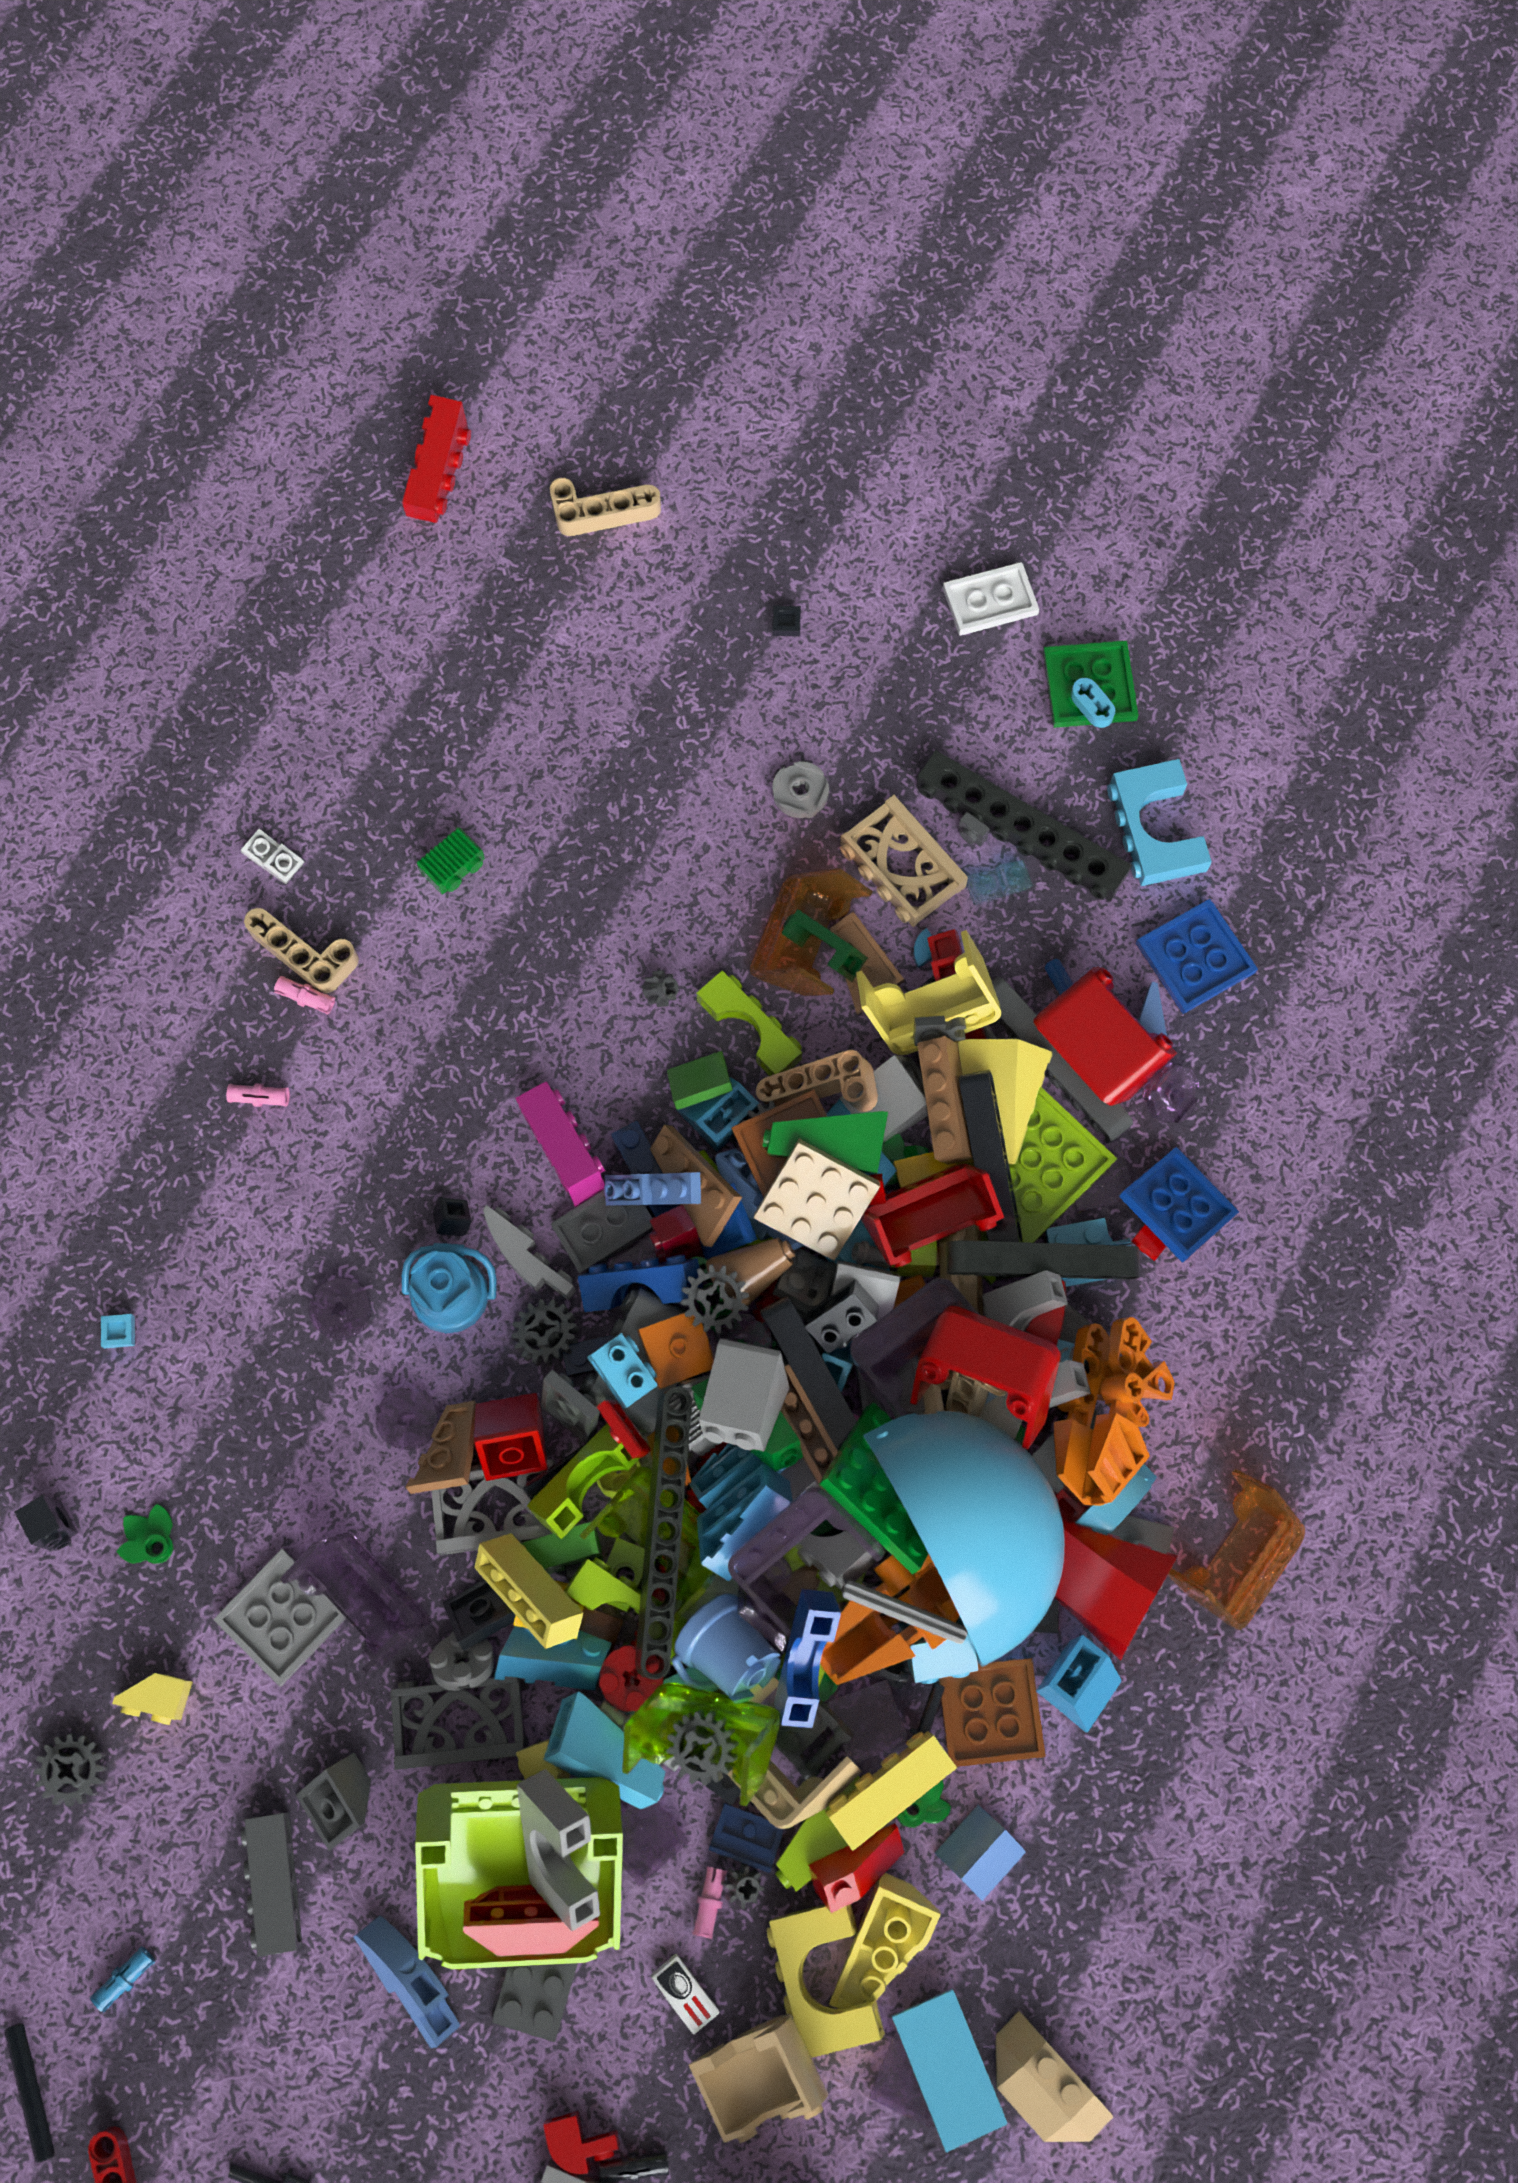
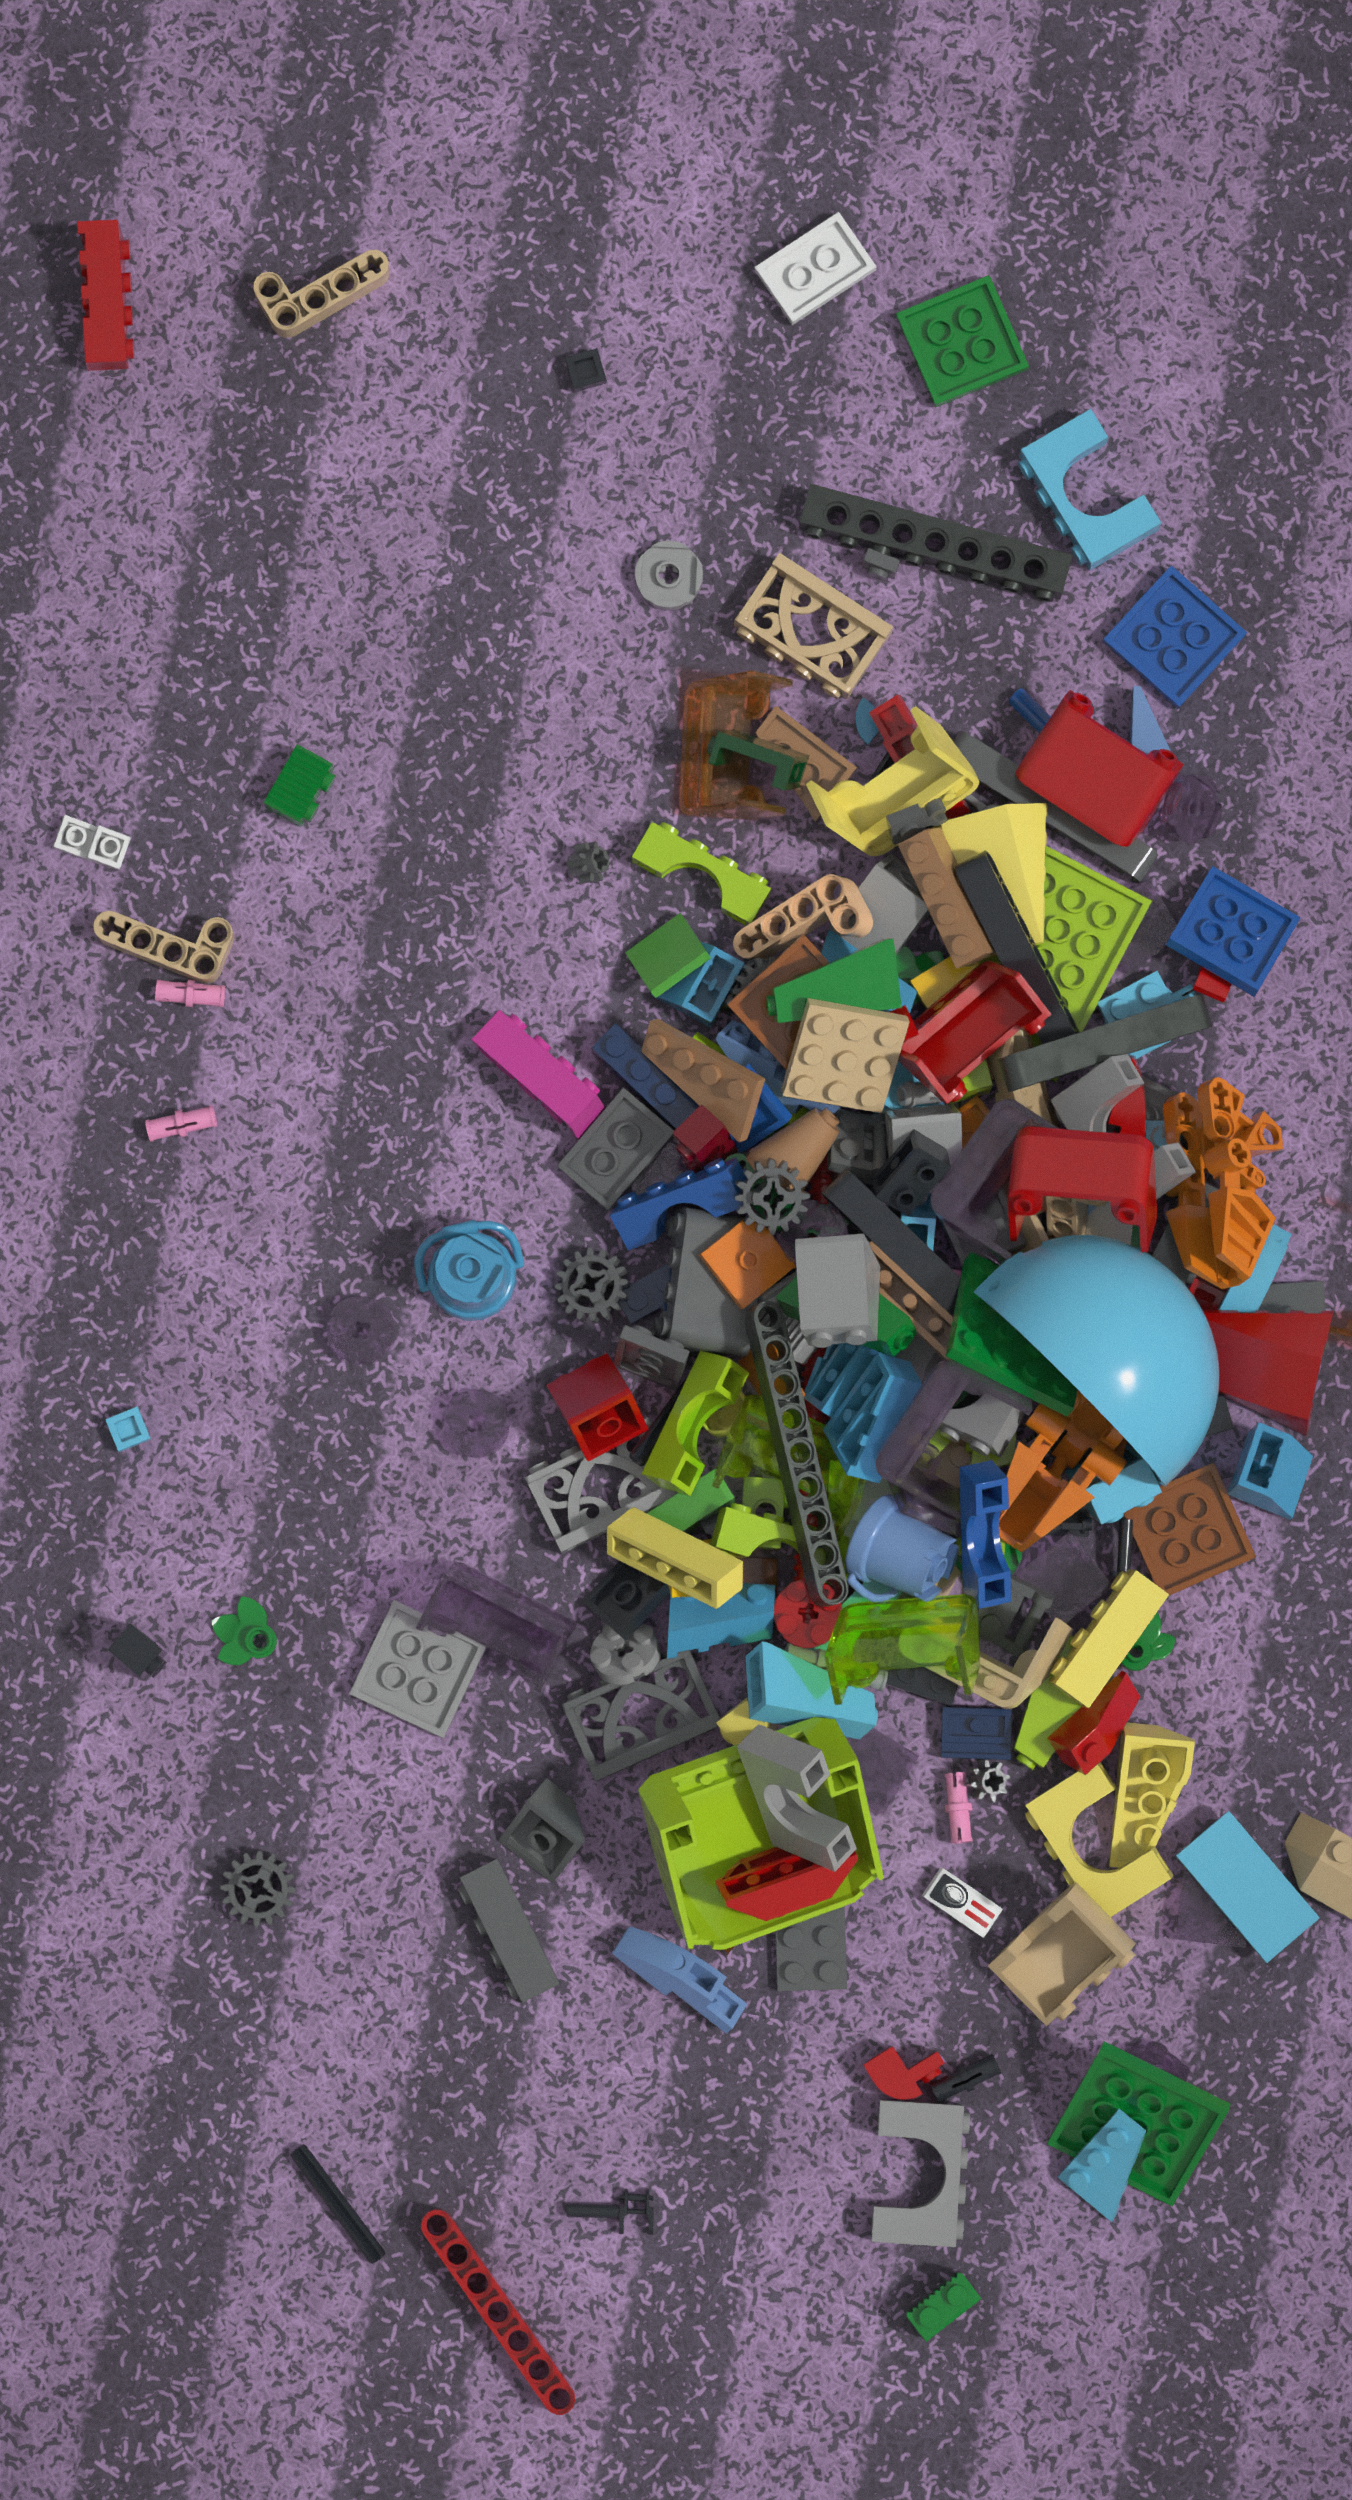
camera: 20 degrees left, 10 degrees up
(122, 1979) = (390, 2070): dark azure pin -> none
(156, 1695) = (319, 1787): light yellow slope -> none
(450, 1453) = (537, 1442): medium nougat wing -> none
(451, 1216) = (445, 1191): black slope -> none
(517, 1245) = (528, 1204): light grey slope -> none
(623, 1370) = (699, 1301): medium azure brick -> none
(623, 1429) = (720, 1363): red plate -> none
(653, 1189) = (663, 1097): medium blue slope -> none
(696, 1734) = (916, 1665): dark grey gear -> none
(904, 1612) = (1070, 1456): light grey axle -> none
(980, 1852) = (1217, 1672): medium blue slope -> none
(998, 883) = (928, 617): clear light blue slope -> none
(1089, 704) = (977, 361): medium azure beam -> none

